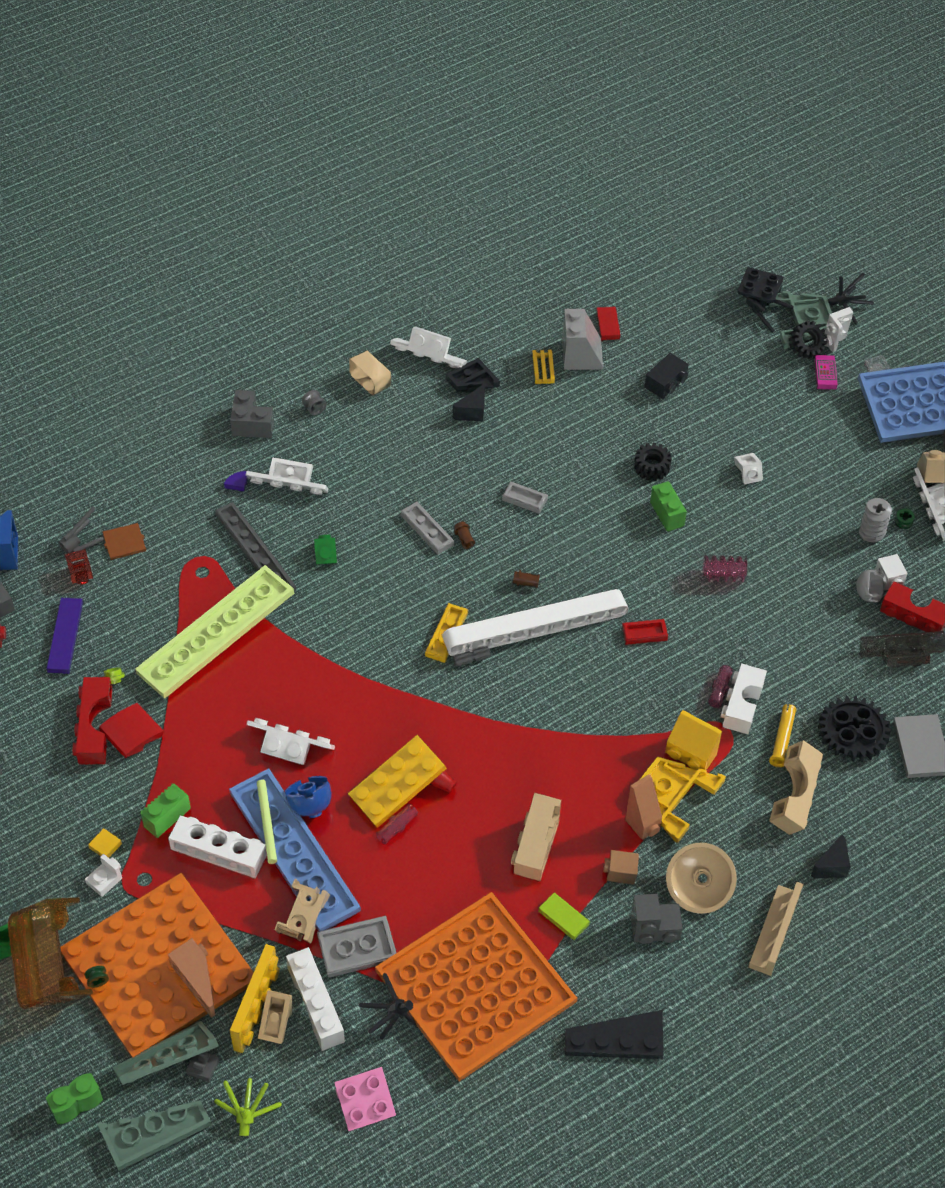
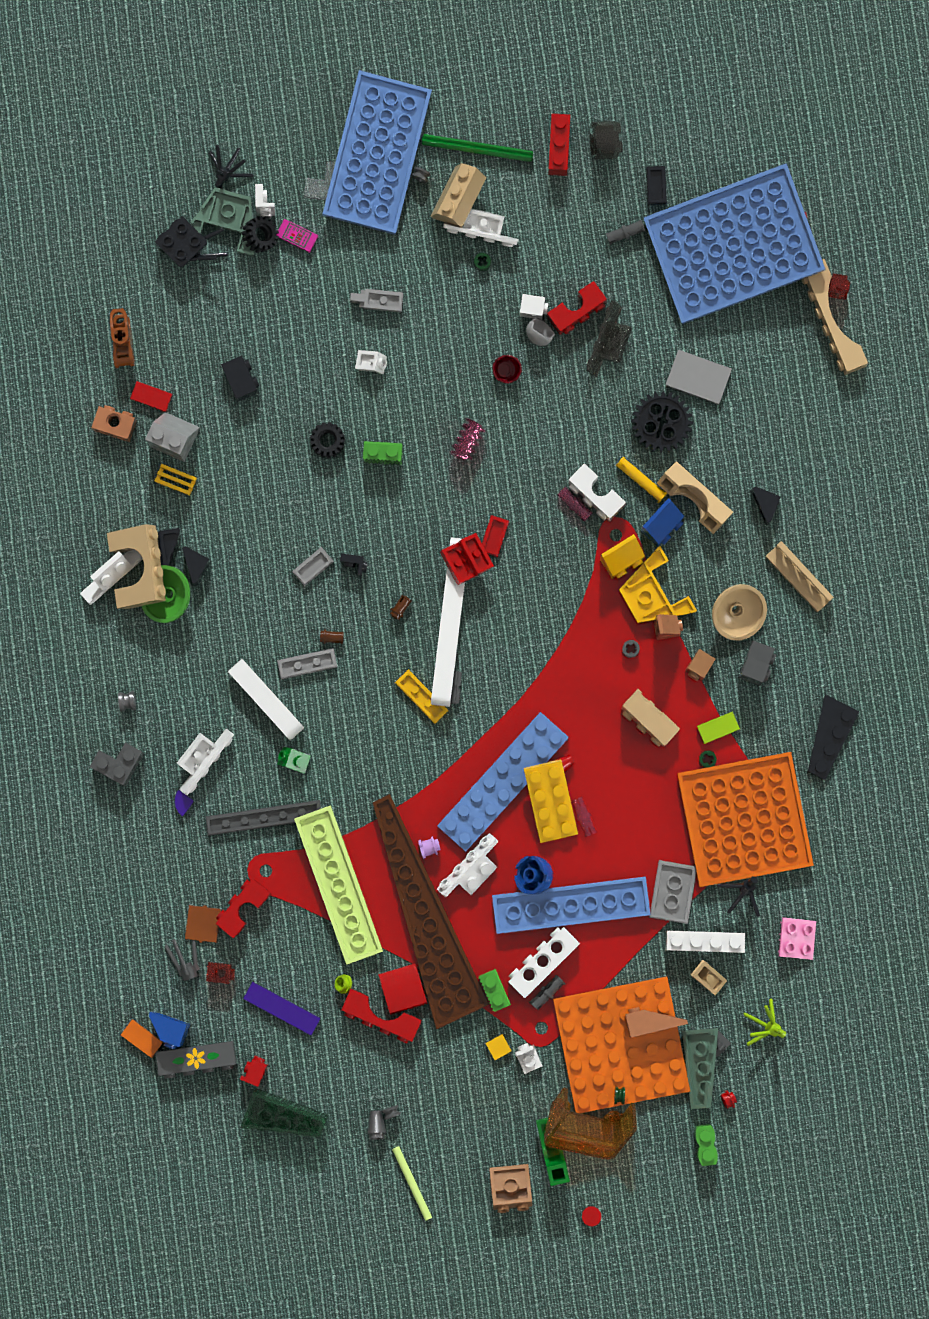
camera: 60 degrees left, 30 degrees up
(138, 556) = (230, 919): none -> red arch
(139, 1104) = (728, 1099): none -> red plate
(145, 1135) = (753, 1107): sand green wing -> none
(185, 865) = (547, 992): none -> dark grey pin
(207, 728) = (441, 959): none -> reddish brown wing
(250, 1008) = (683, 980): yellow plate -> none
(266, 821) = (541, 917): yellowish green bar -> none
(292, 693) = (429, 847): none -> lavender brick
(303, 912) = (636, 920): tan piece -> none
(369, 372) = (116, 637): tan piece -> none
(373, 506) = (266, 699): none -> white beam
(389, 732) = (502, 782): none -> medium blue plate
(431, 390) = (174, 607): none -> bright green dish
(466, 353) = (150, 586): none -> tan arch
(527, 913) = (709, 753): none -> dark green bush
(549, 525) = (352, 560): none -> black bracket
(565, 297) = (122, 431): none -> nougat brick
(601, 789) = (630, 643): none -> dark grey bush
(606, 606) = (466, 559): none -> red slope
(644, 278) = (123, 351): none -> dark orange piece
(751, 765) = (663, 523): none -> blue slope
(810, 451) = (378, 300): none -> light grey hinge
(816, 573) = (506, 369): none -> dark red hair
(875, 520) = (481, 285): light grey piece -> none

